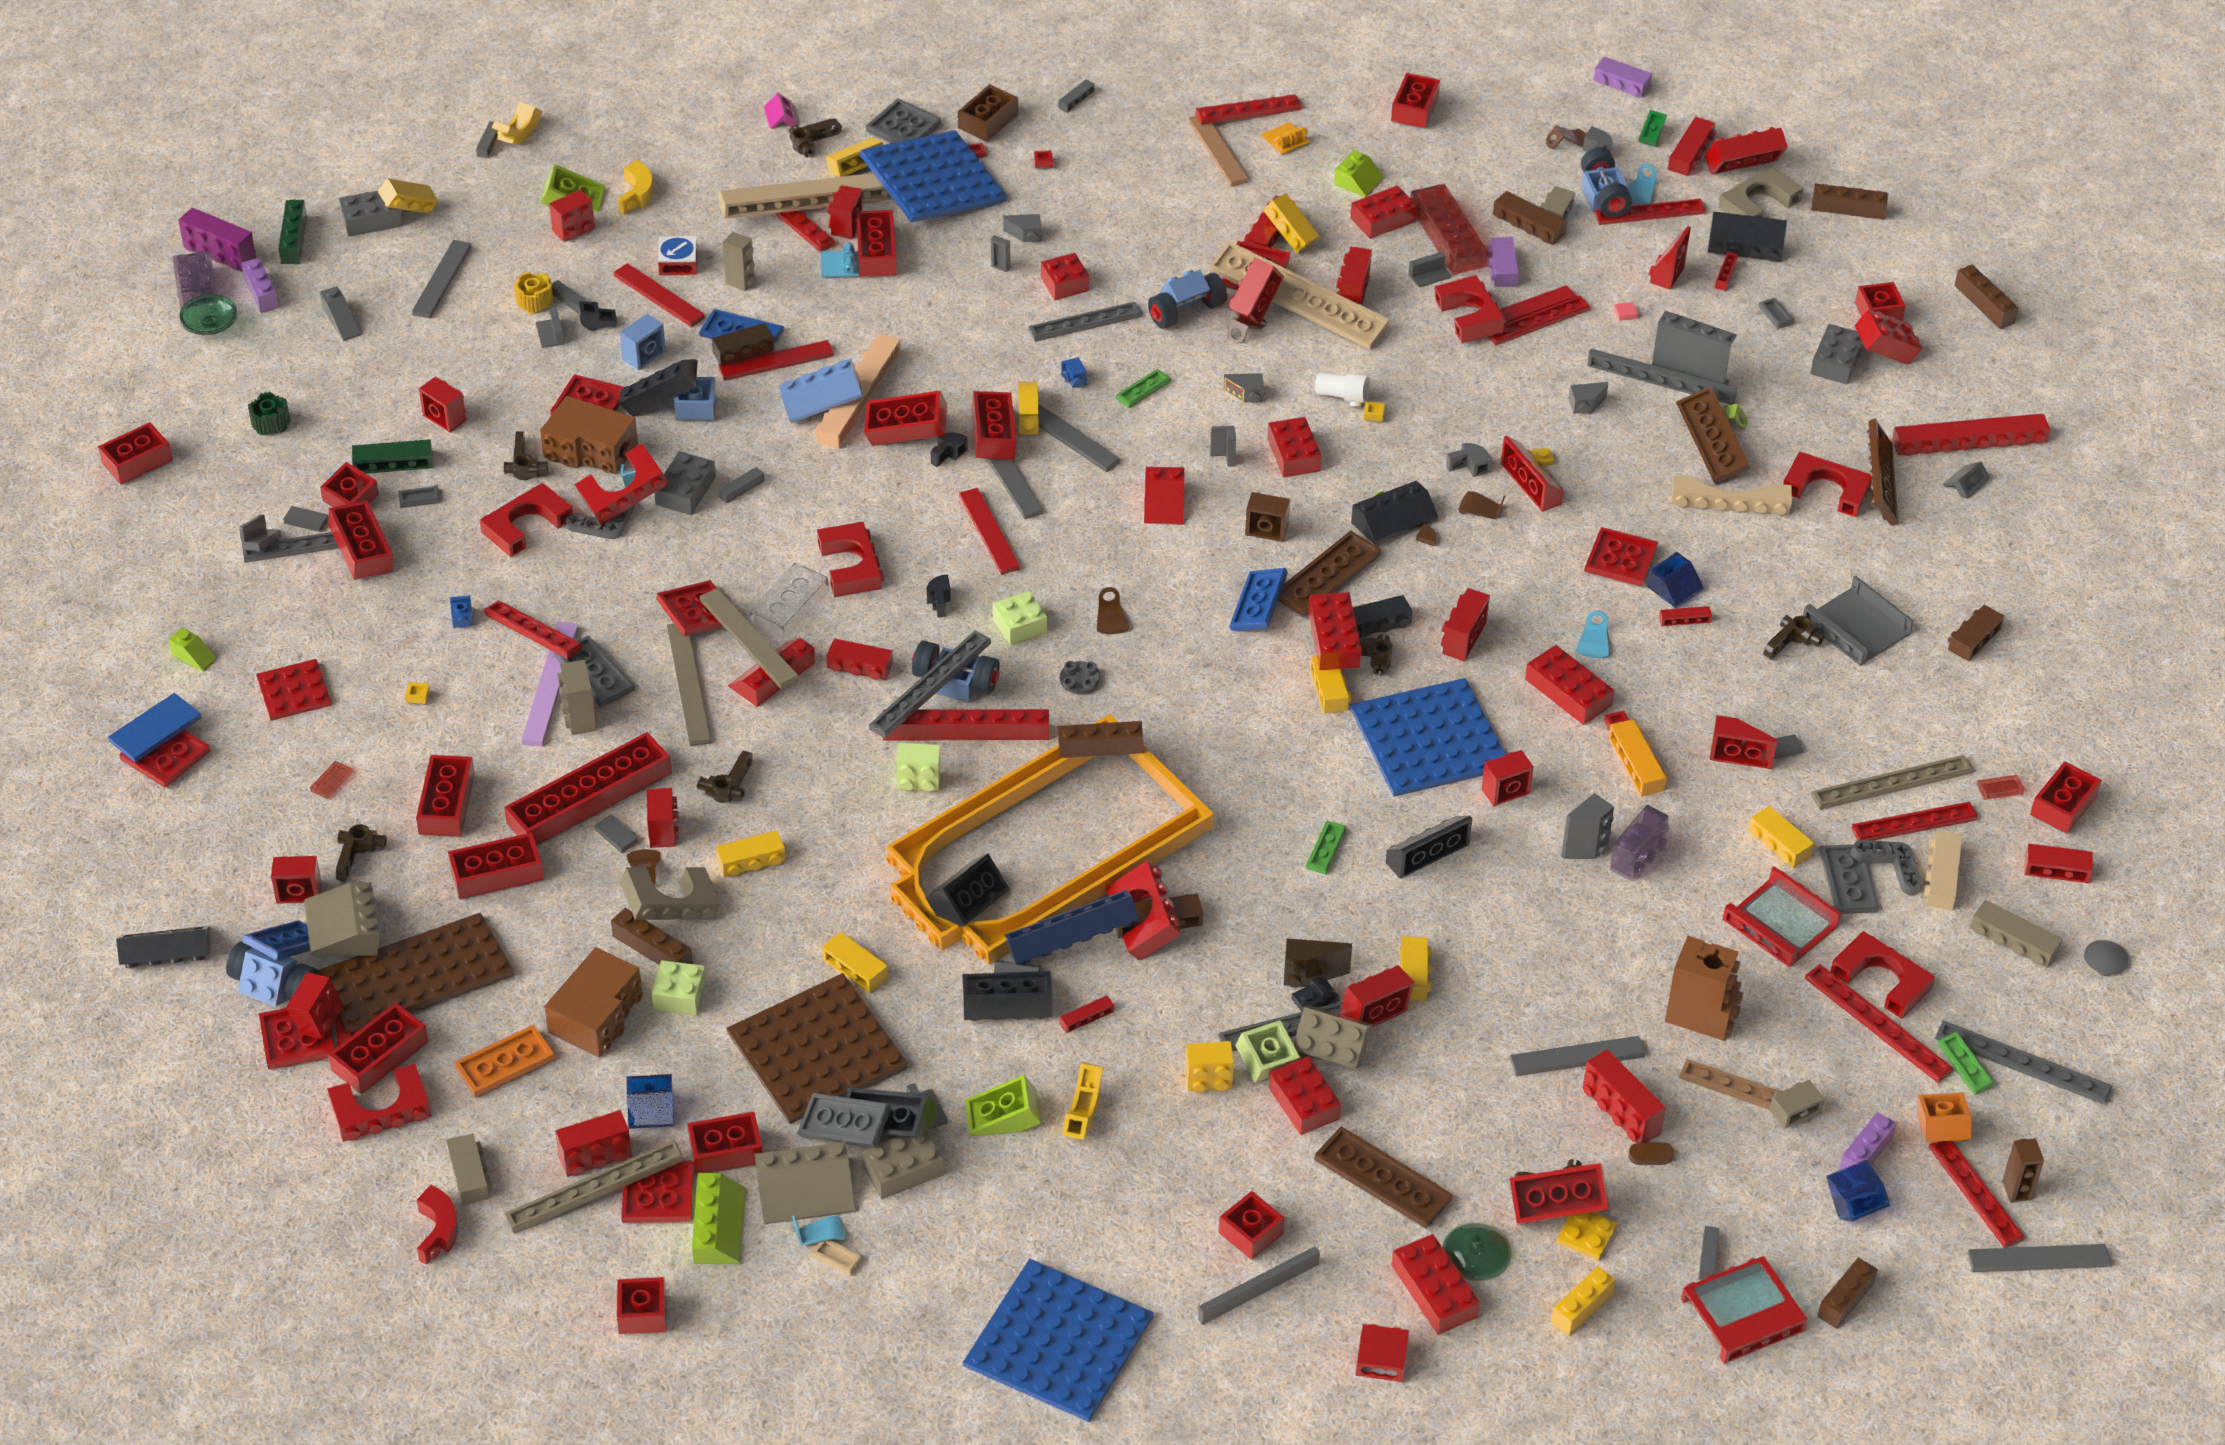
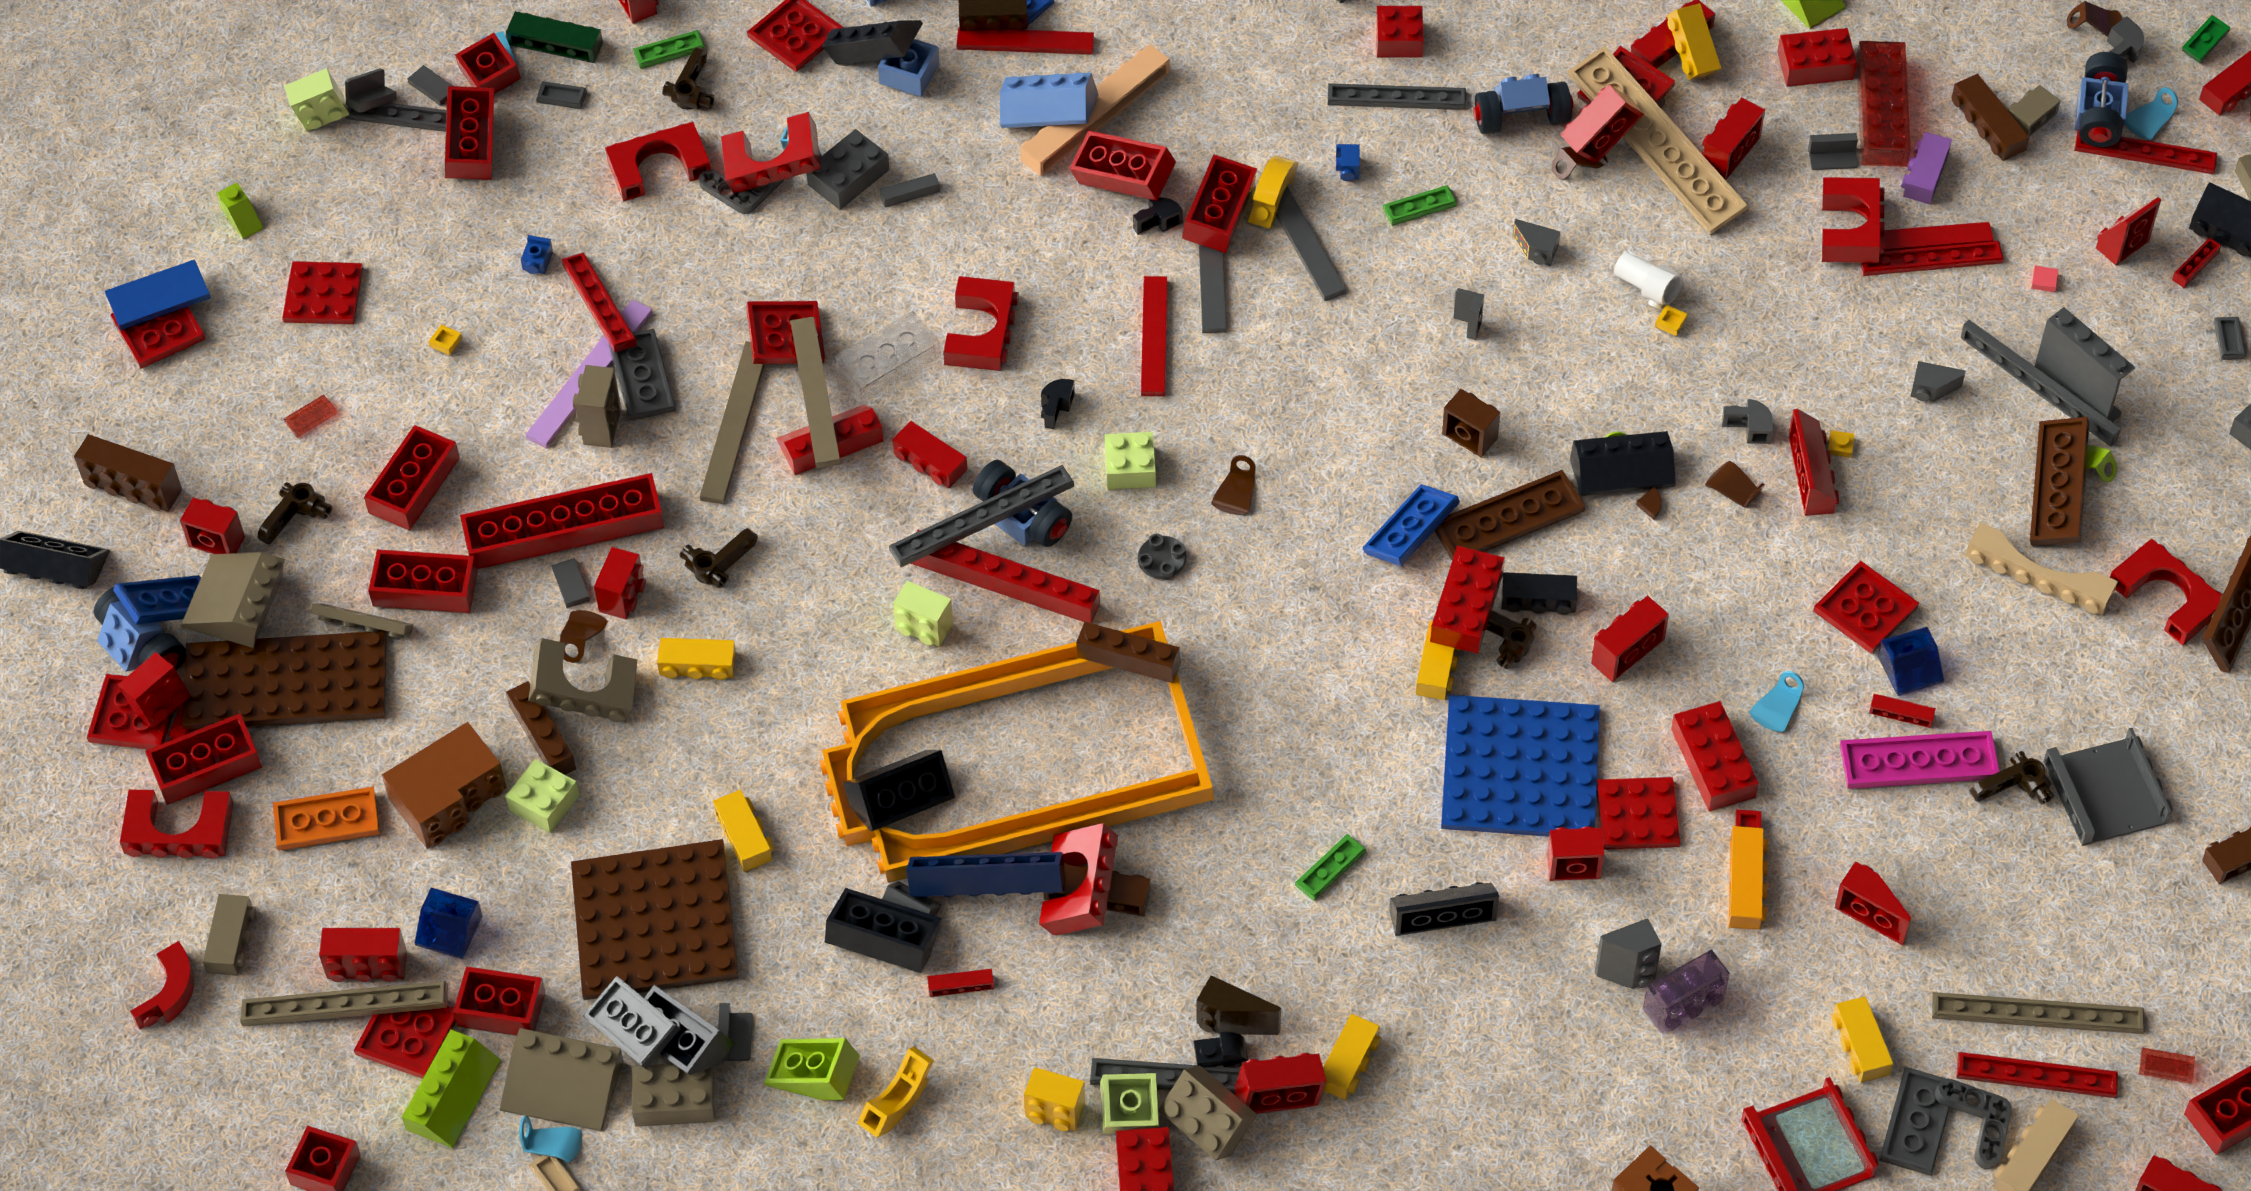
camera: 25 degrees right, 10 degrees up
(200, 861) = (128, 473): none -> reddish brown brick
(218, 550) = (316, 100): none -> yellowish green brick
(465, 909) = (352, 618): none -> dark tan plate
(490, 442) = (668, 49): none -> bright green tile
(588, 436) = (768, 77): dark orange piece -> none
(1164, 495) = (1371, 355): red slope -> none
(1294, 447) = (1551, 339): red brick -> none
(1537, 737) = (1638, 813): none -> red plate
(1715, 644) = (1918, 759): none -> dark pink plate
(1787, 746) = (1929, 921): dark grey tile -> none

